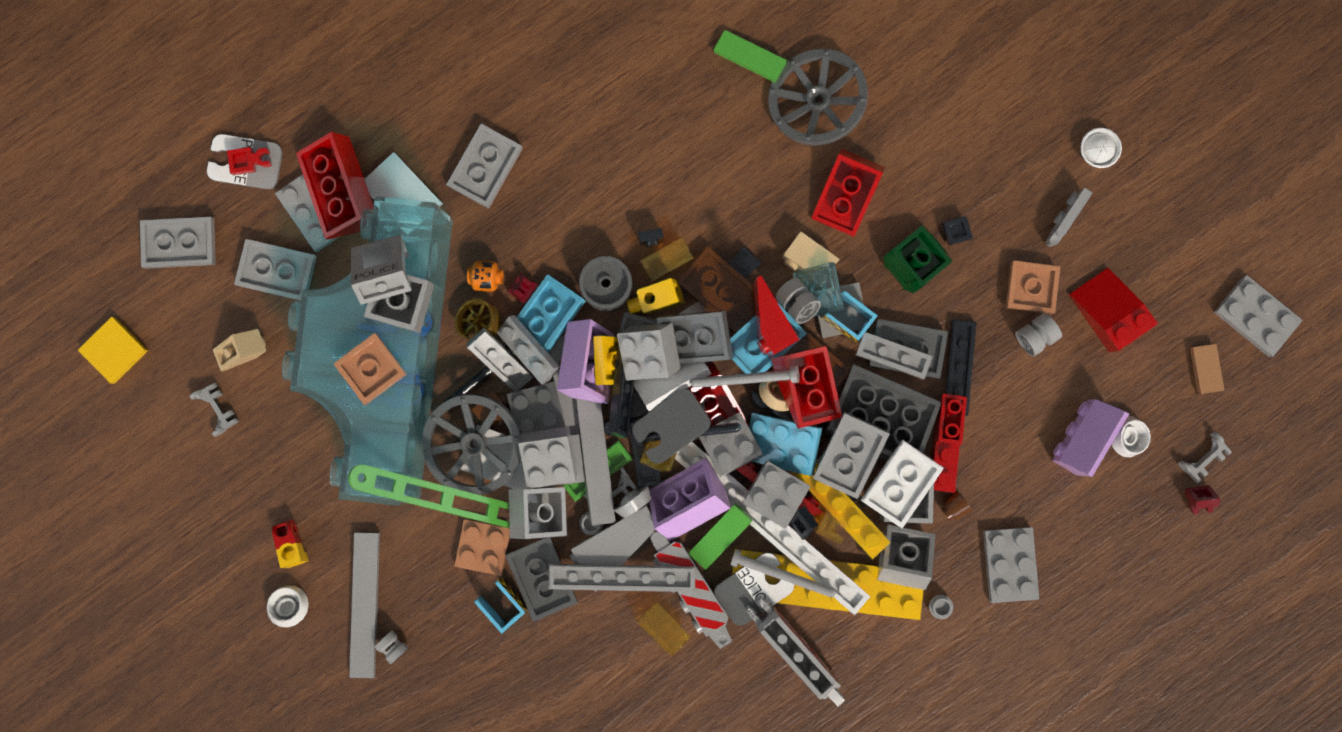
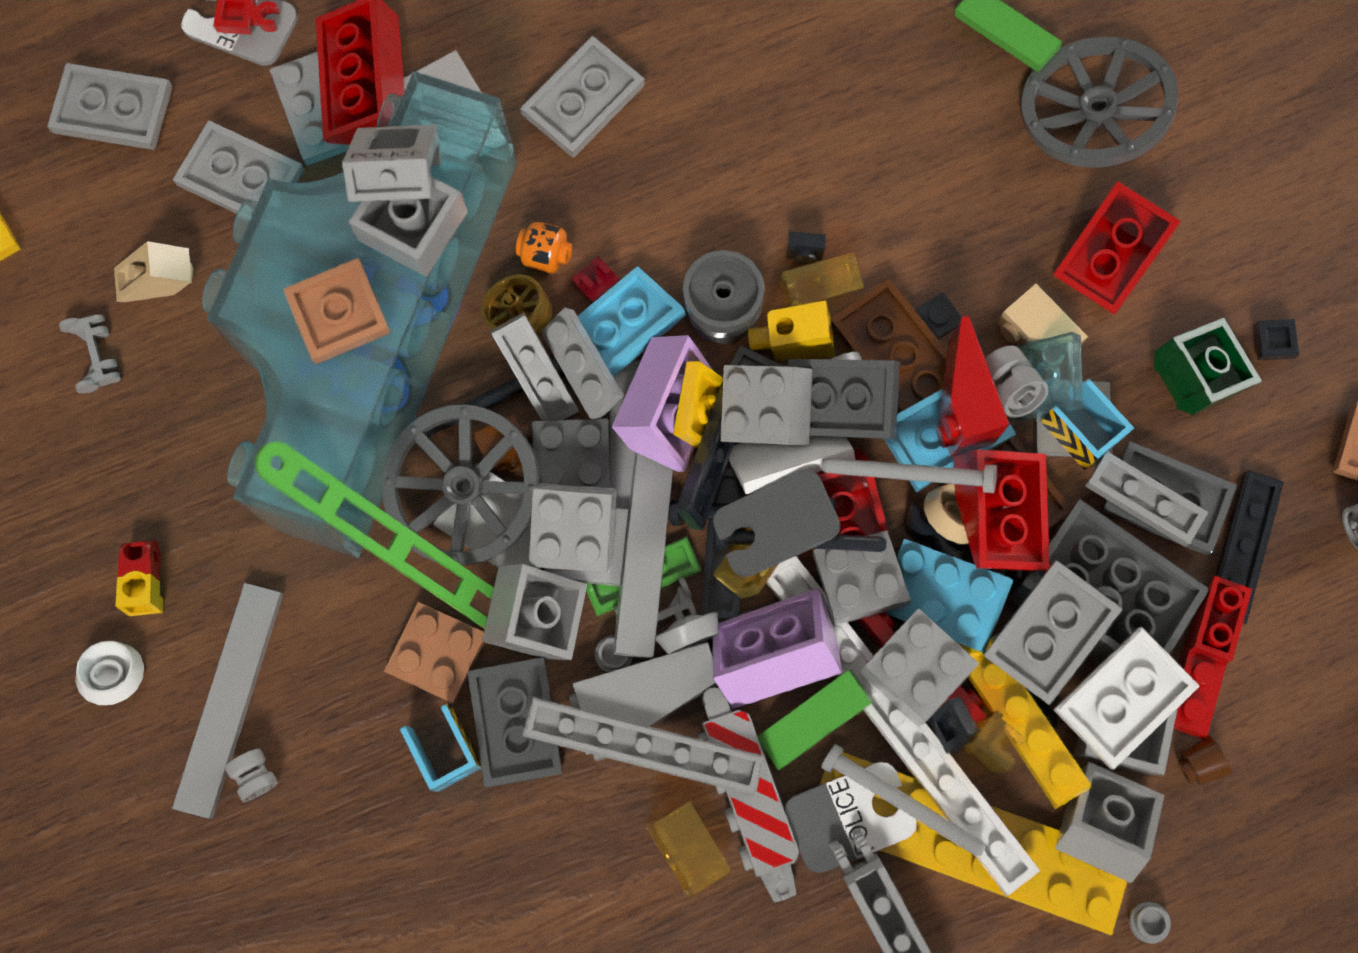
camera: 15 degrees right, 10 degrees down
(1011, 564) = (1277, 880): light grey plate -> none

